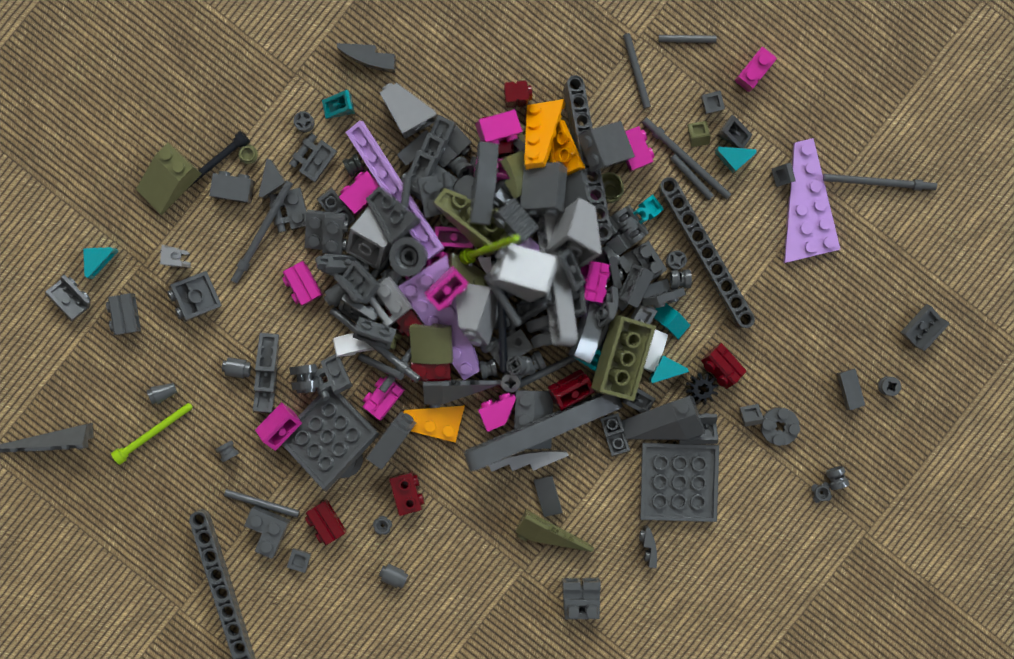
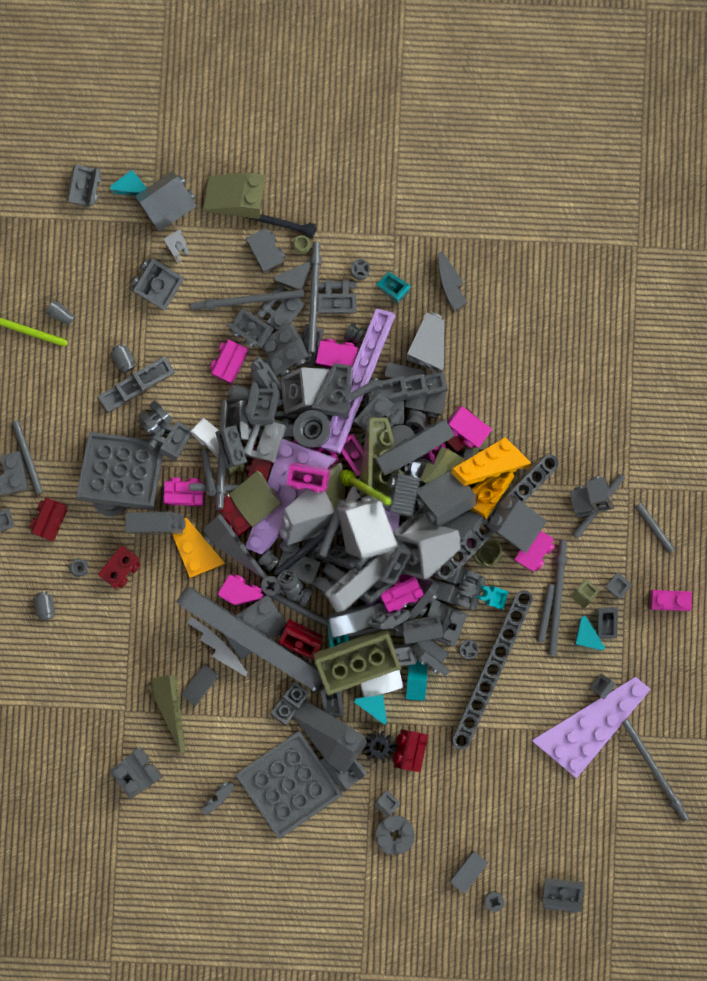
camera: 50 degrees right, 5 degrees down
(123, 314) = (101, 238): dark grey brick -> none
(130, 238) = (166, 200): none -> dark grey brick
(227, 451) = (50, 399): dark grey wheel -> none
(271, 154) = (315, 262): none -> dark grey bar
(278, 426) = (100, 425): dark pink brick -> none
(287, 246) = (251, 328): none -> dark grey bracket
(517, 94) = (507, 422): dark red brick -> none
(629, 70) = (593, 498): none -> dark grey brick
(680, 279) = (459, 667): dark grey wheel -> none
(826, 496) = (360, 909): dark grey plate -> none
(837, 478) = (384, 917): dark grey wheel -> none

